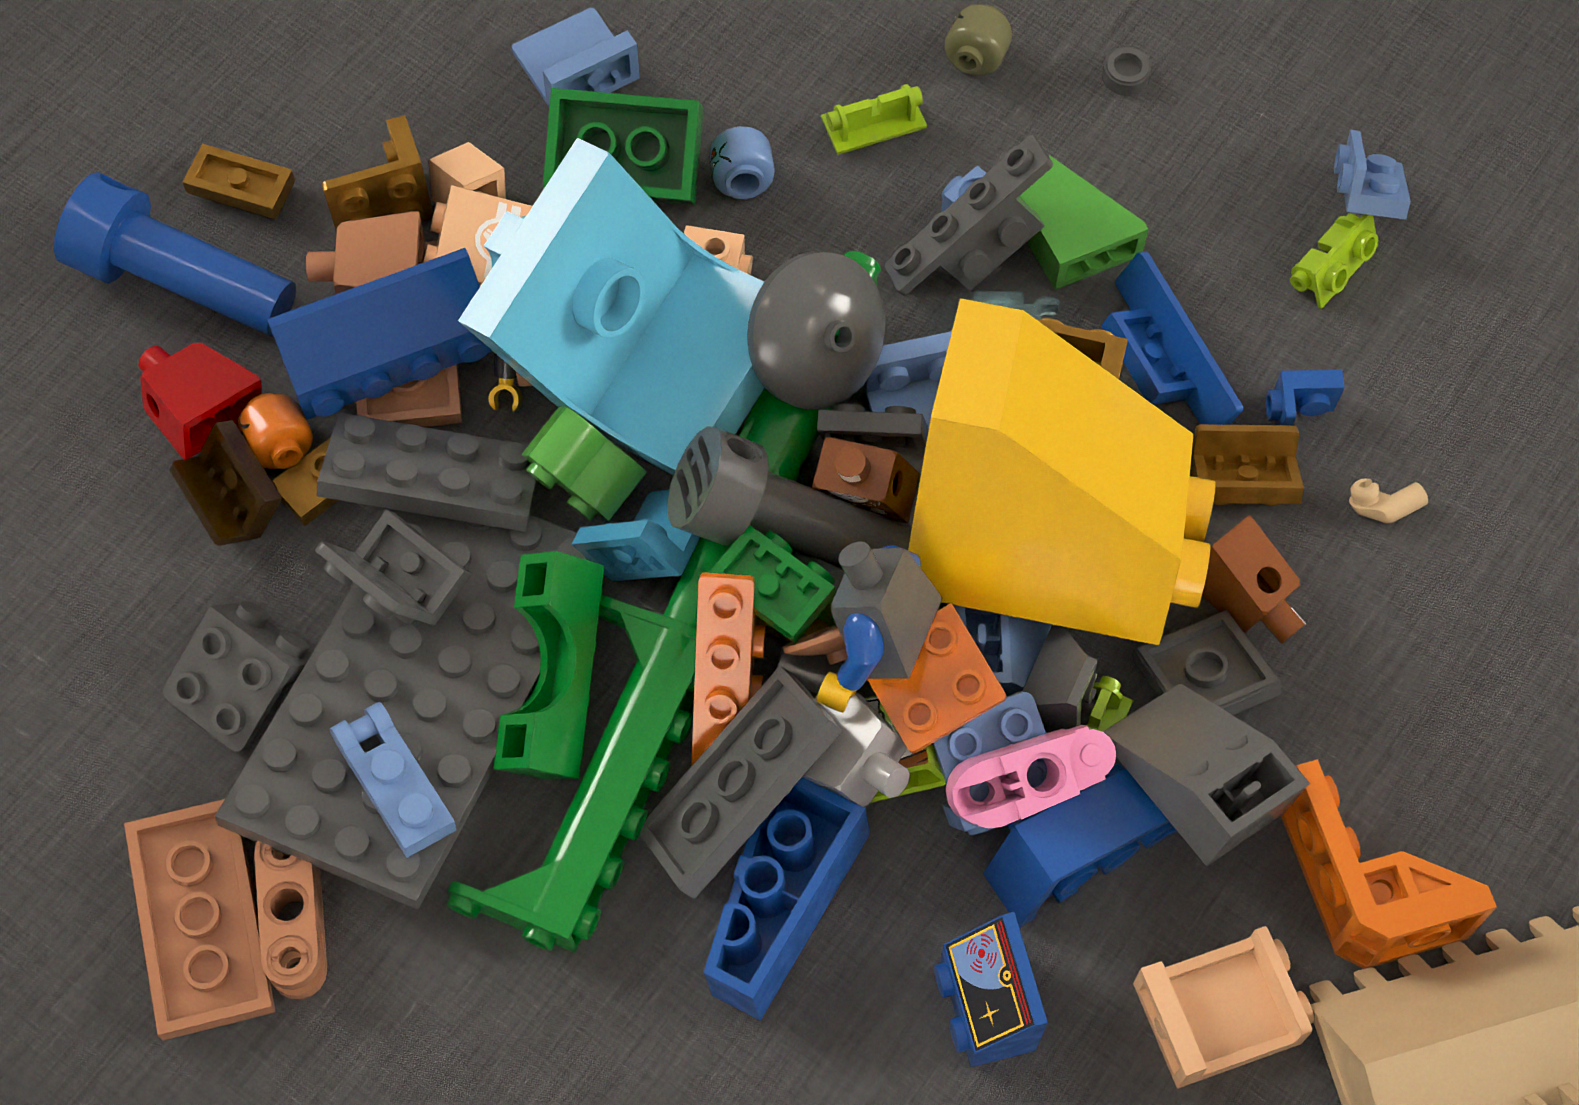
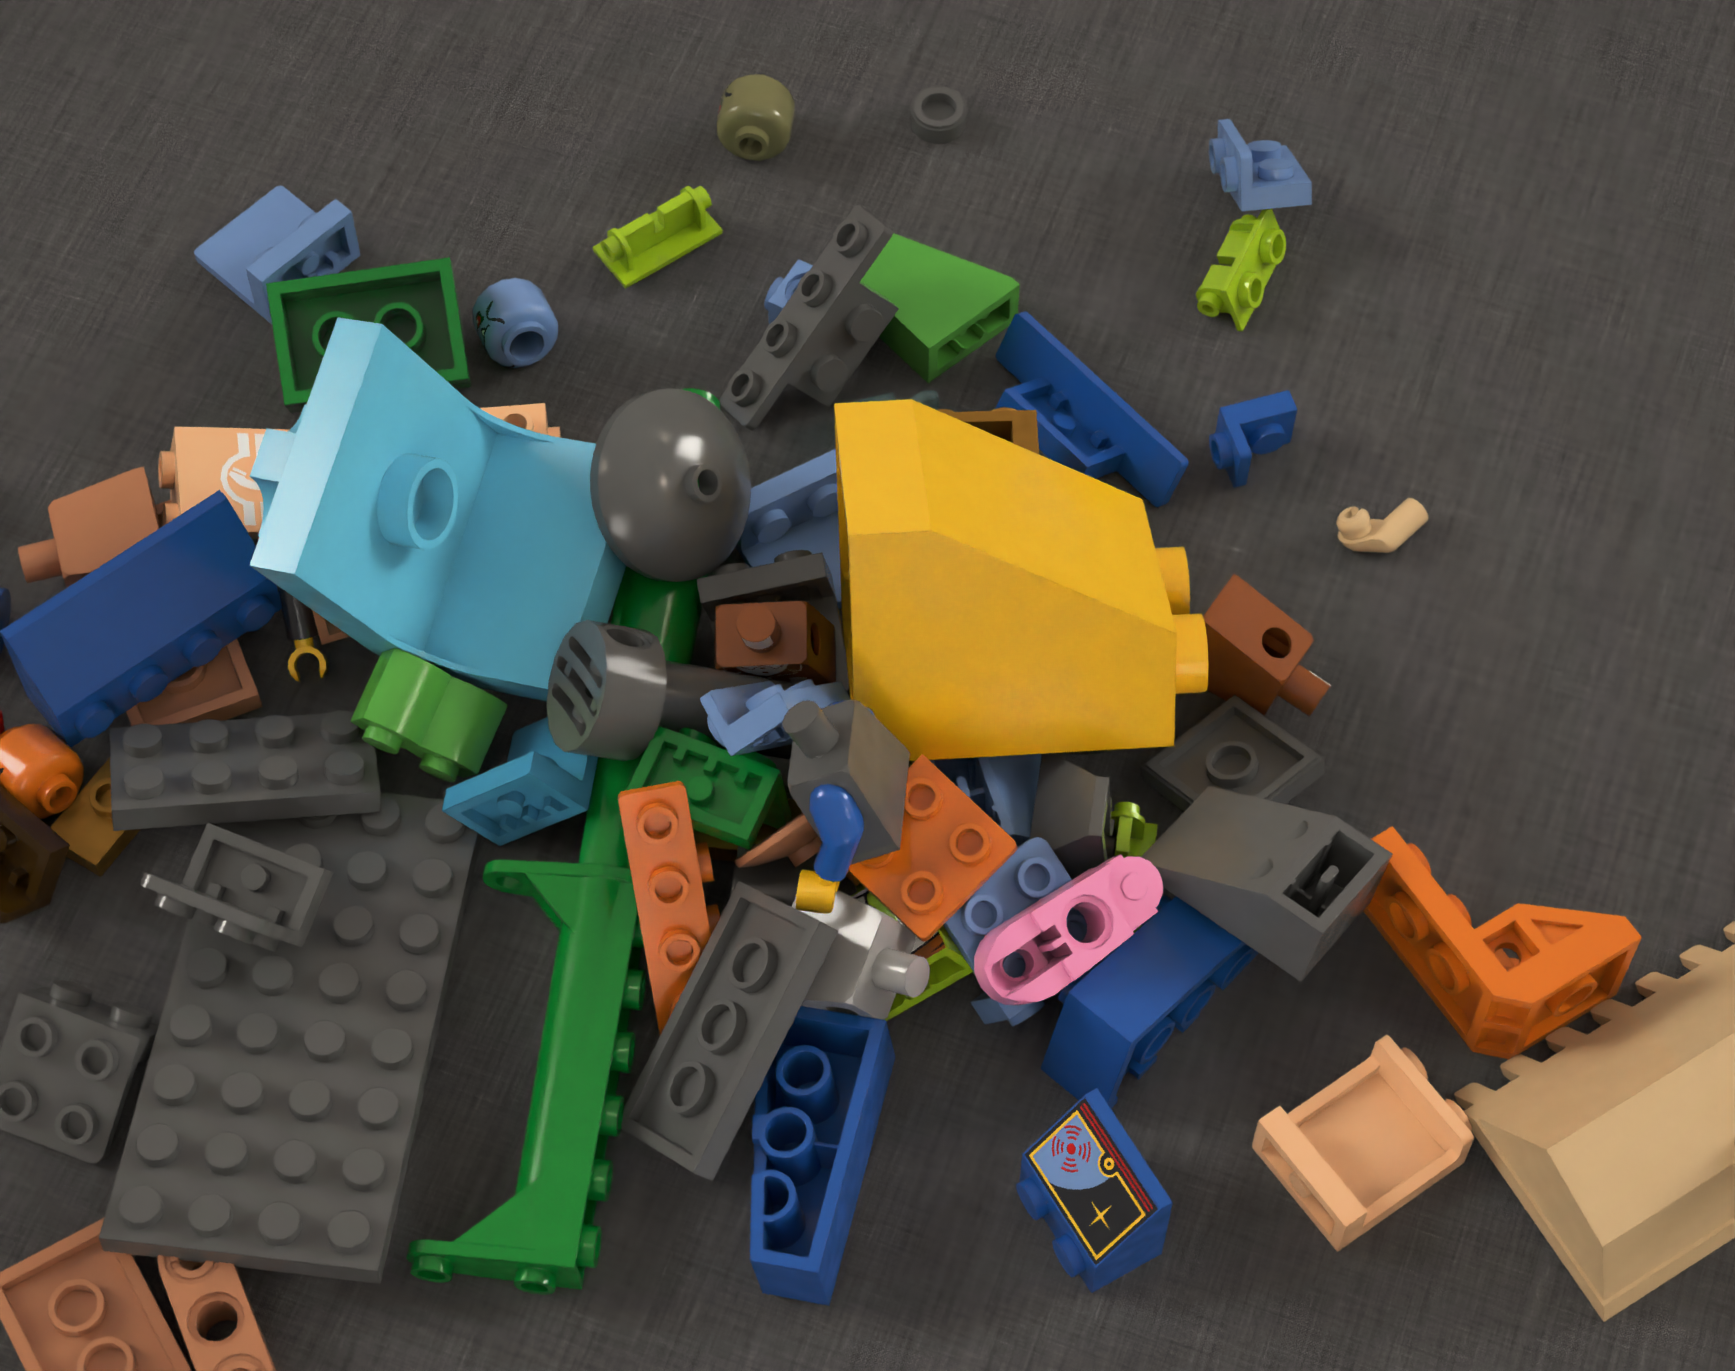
camera: 15 degrees left, 5 degrees down
(384, 188) = (89, 451): pearl gold bracket -> none
(394, 781) = (309, 1136): medium blue plate -> none
(466, 169) = (182, 404): light nougat brick -> none
(562, 605) = (454, 882): green arch -> none
(821, 535) = (752, 714): none -> medium blue bracket
(1249, 463) = (1215, 520): pearl gold bracket -> none

